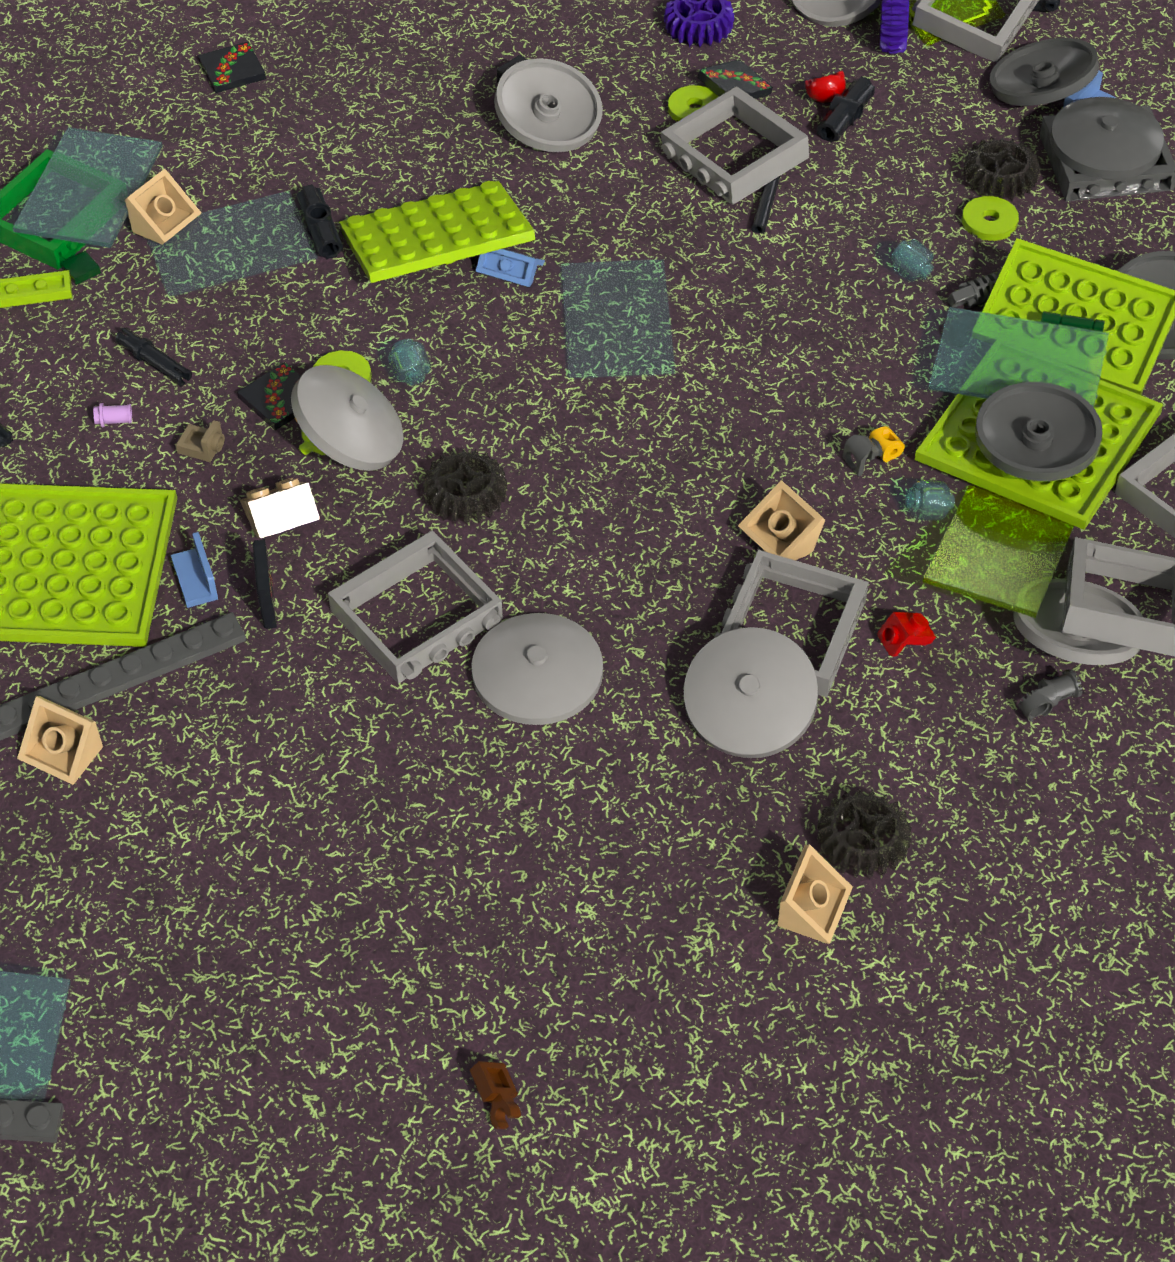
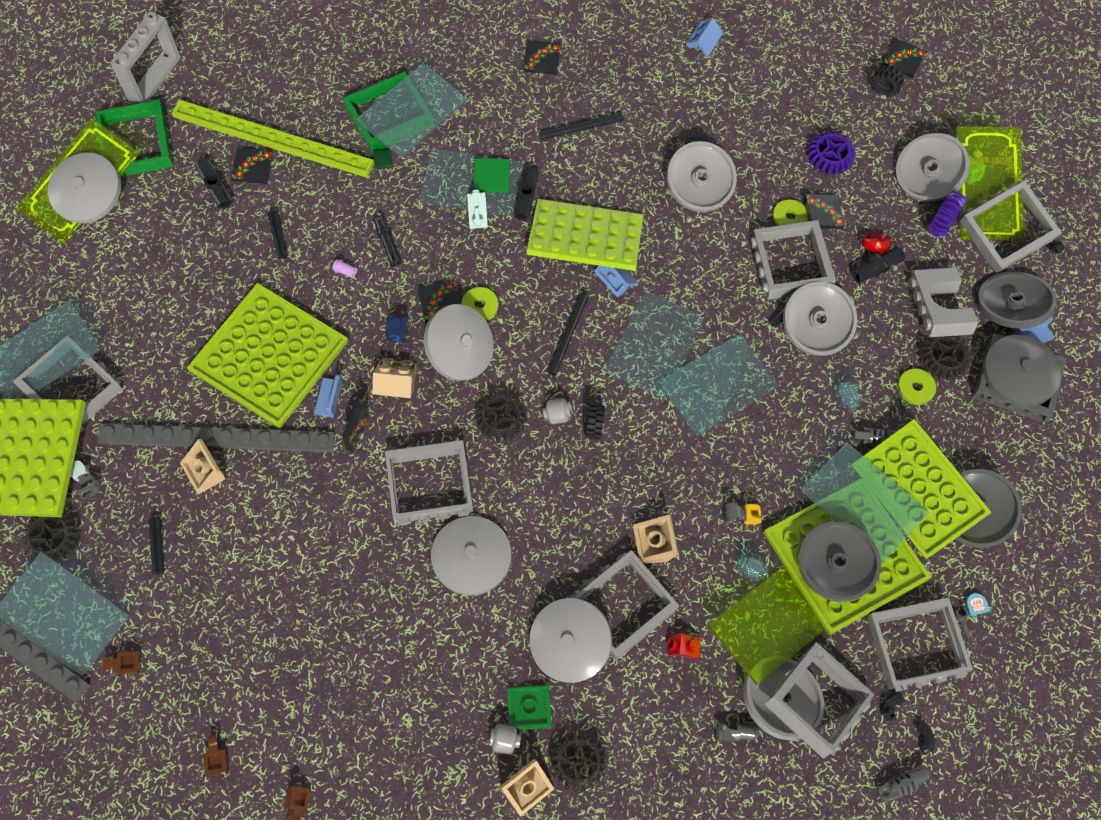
camera: 25 degrees right, 15 degrees up
(51, 877) = (156, 546): none -> black axle
(103, 1045) = (124, 663): none -> reddish brown plate
(160, 208) = (443, 143): tan slope -> none
(201, 442) = (378, 311): dark tan bracket -> none
(242, 448) = (397, 329): none -> dark blue brick
(254, 221) = (491, 175): none -> green tile
(261, 266) = (477, 210): none -> light aqua hinge
(331, 1098) = (215, 760): none -> reddish brown plate
(341, 120) = (576, 127): none -> black piece
(409, 361) = (519, 317): clear light blue head -> none
(491, 356) = (568, 333): none -> black piece
(540, 444) = (557, 411): none -> light grey head
(602, 429) = (595, 421): none -> black tyre
(735, 325) = (718, 385): none -> clear light blue piece
(742, 856) = (504, 739): none -> light grey head
(748, 807) = (529, 707): none -> green tile
(816, 192) = (820, 318): none -> light grey dish
(930, 104) = (940, 320): none -> light grey arch
(1073, 321) = (913, 493): dark green wheel -> none

